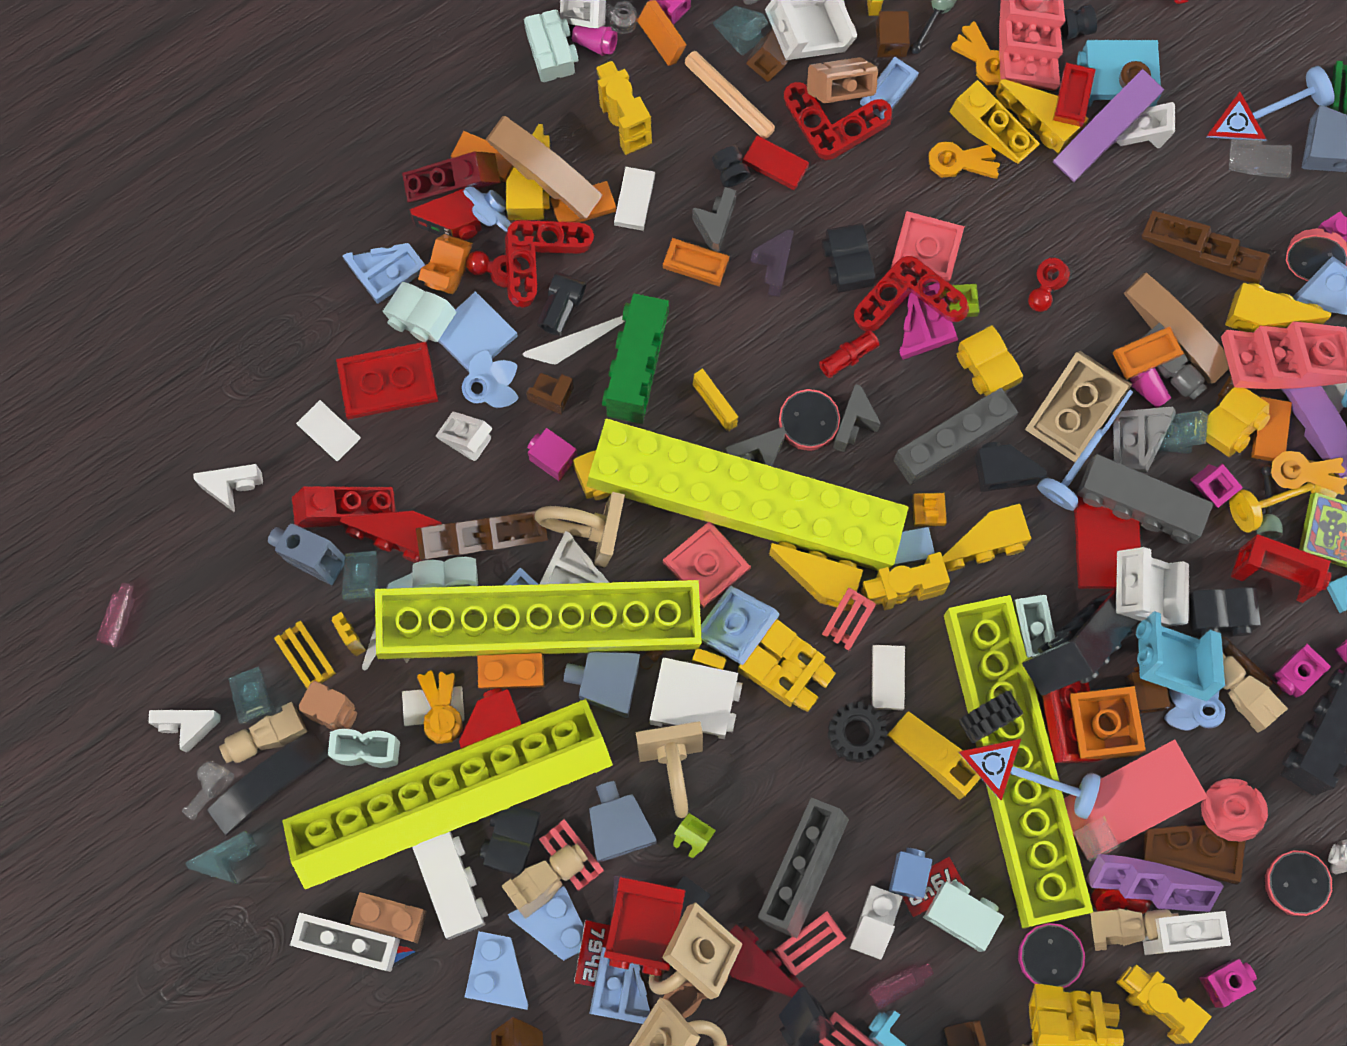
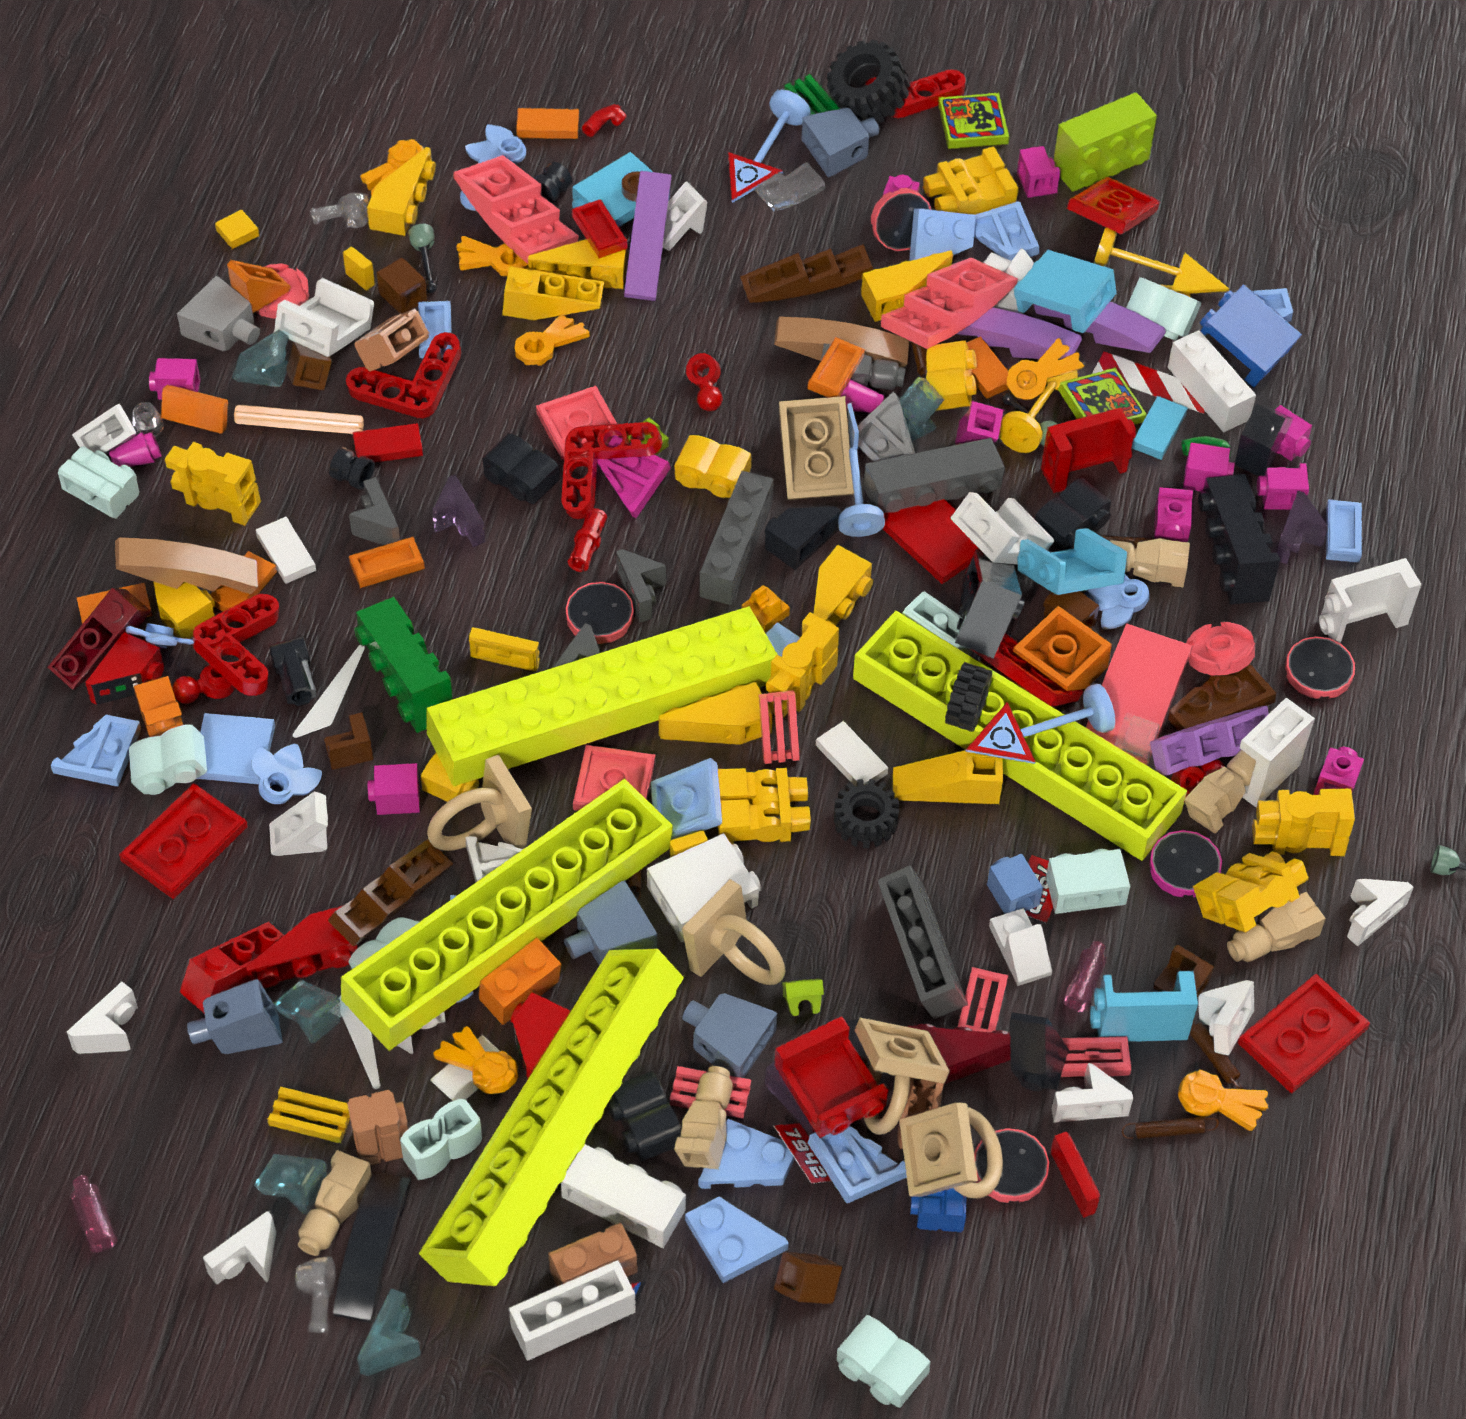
camera: 40 degrees left, 20 degrees down
(328, 430) = (162, 920): white sticker -> none
(347, 634) = (348, 1057): yellow tile -> none

